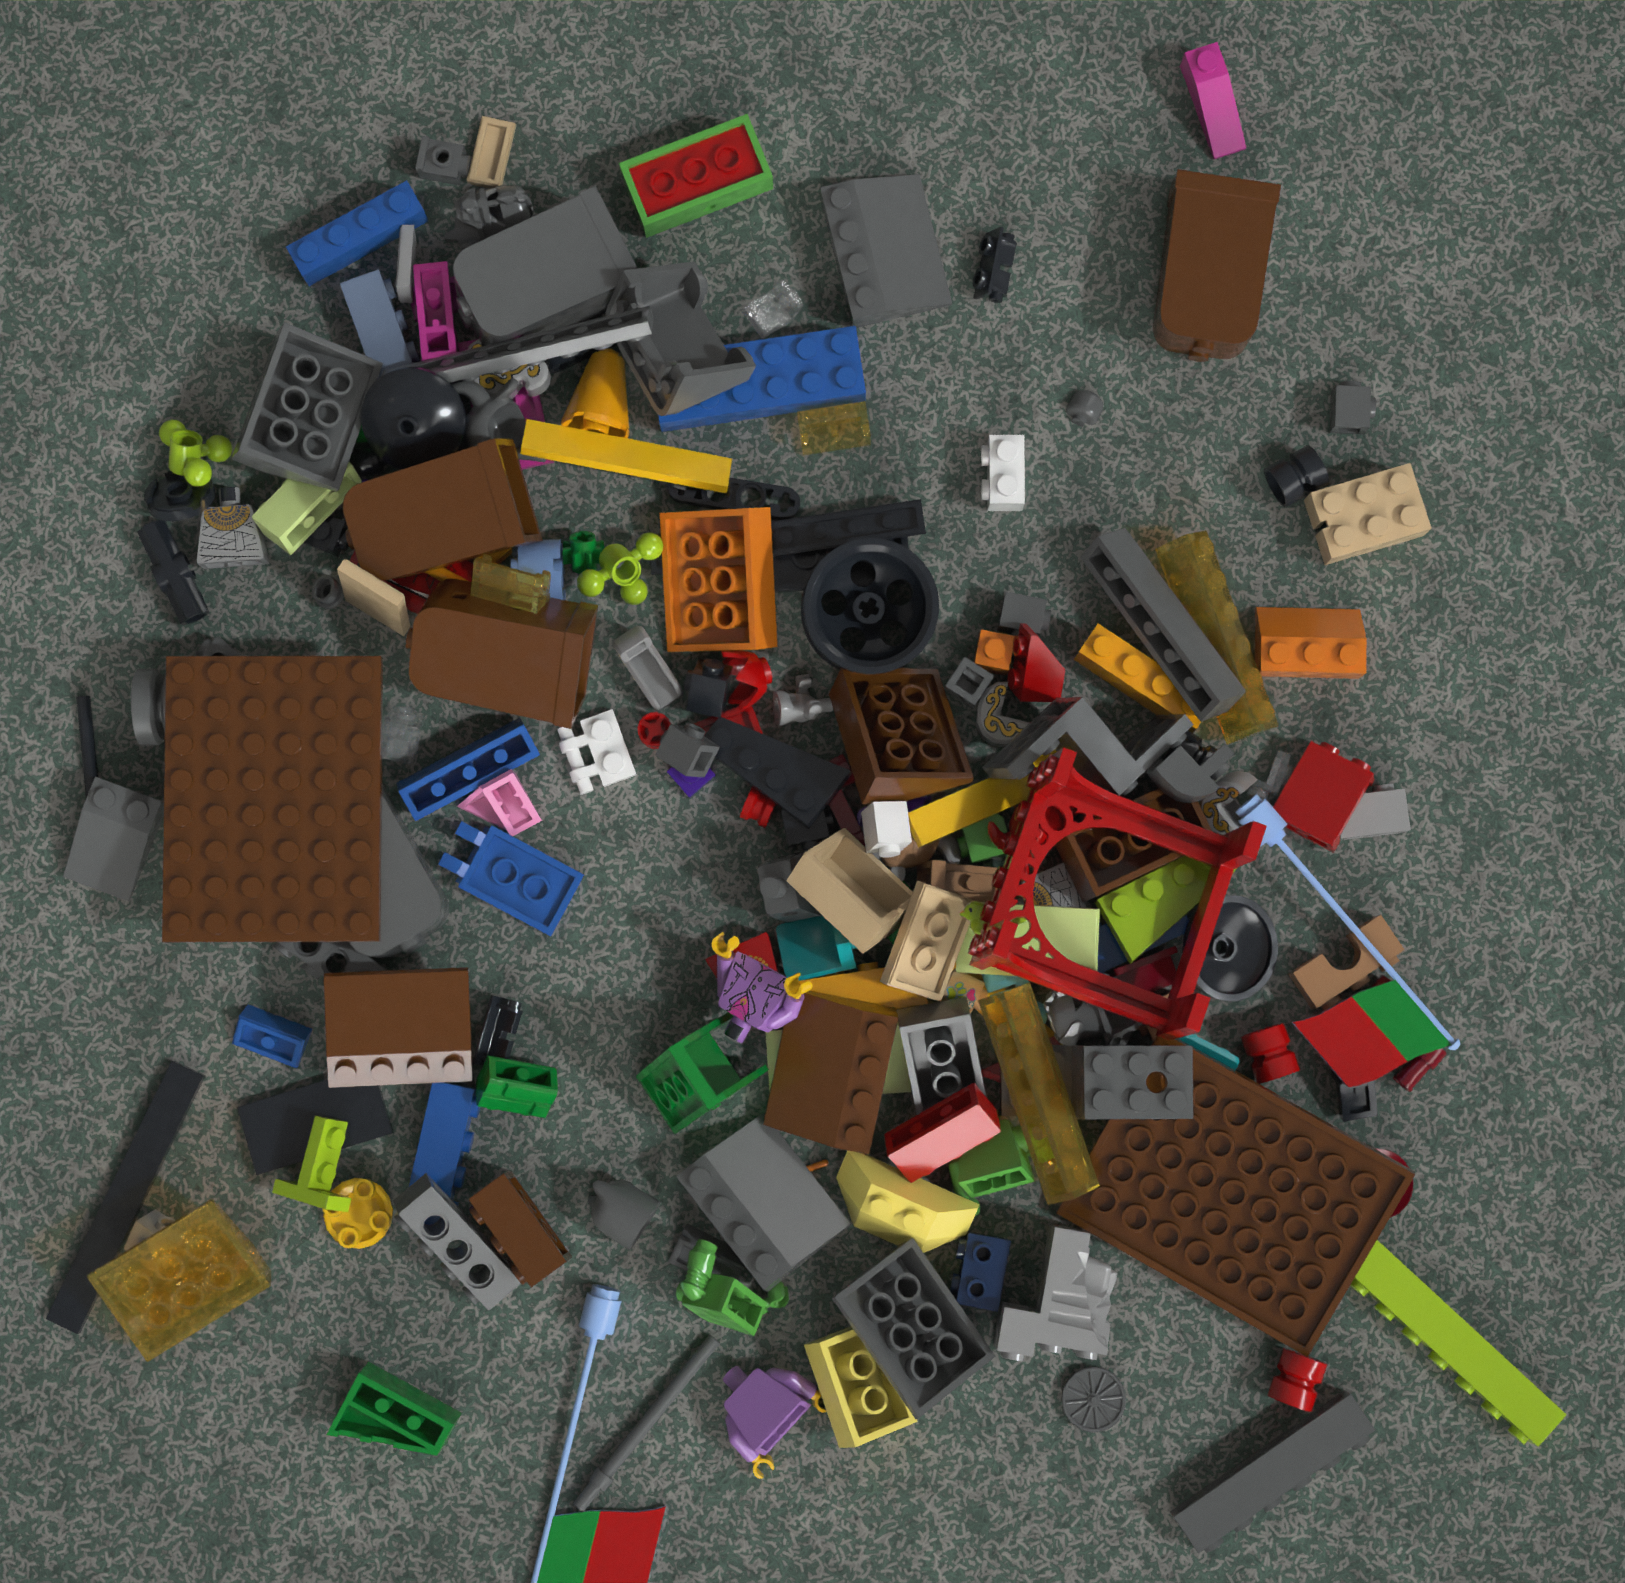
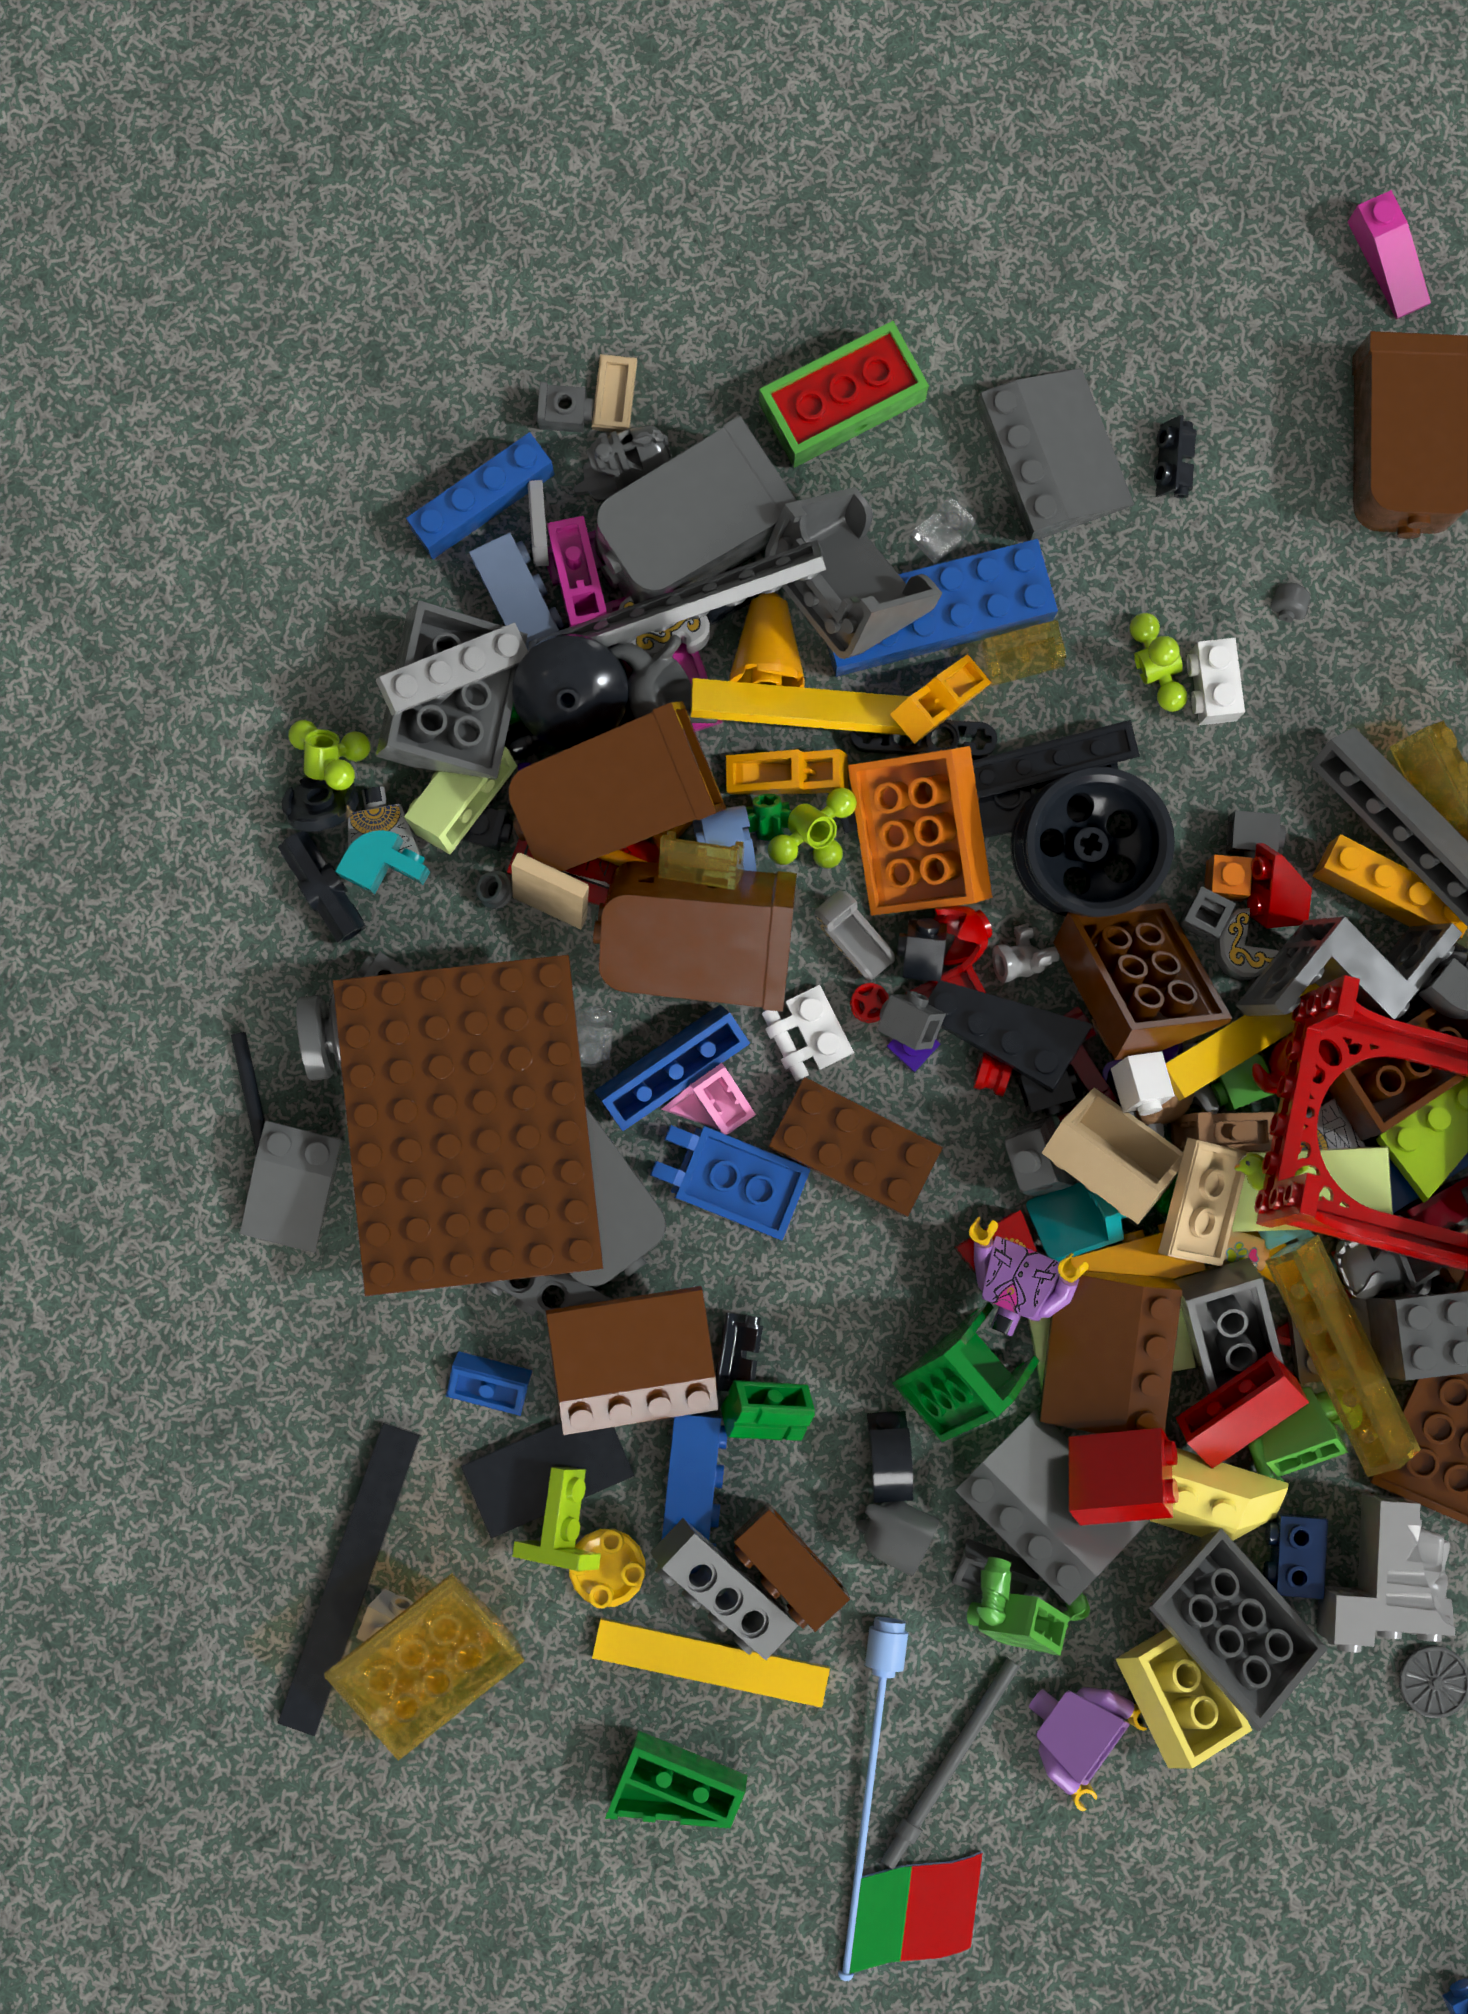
camera: 10 degrees left, 0 degrees up
(217, 550) = (373, 854): none -> teal brick
(307, 387) = (452, 669): none -> light grey plate
(441, 1308) = (710, 1662): none -> yellow tile
(605, 513) = (787, 772): none -> light orange slope
(622, 1141) = (890, 1456): none -> black brick
(625, 859) = (855, 1147): none -> reddish brown brick
(751, 461) = (940, 698): none -> light orange slope
(824, 1180) = (1122, 1476): none -> red brick
(955, 449) = (1158, 661): none -> lime piece

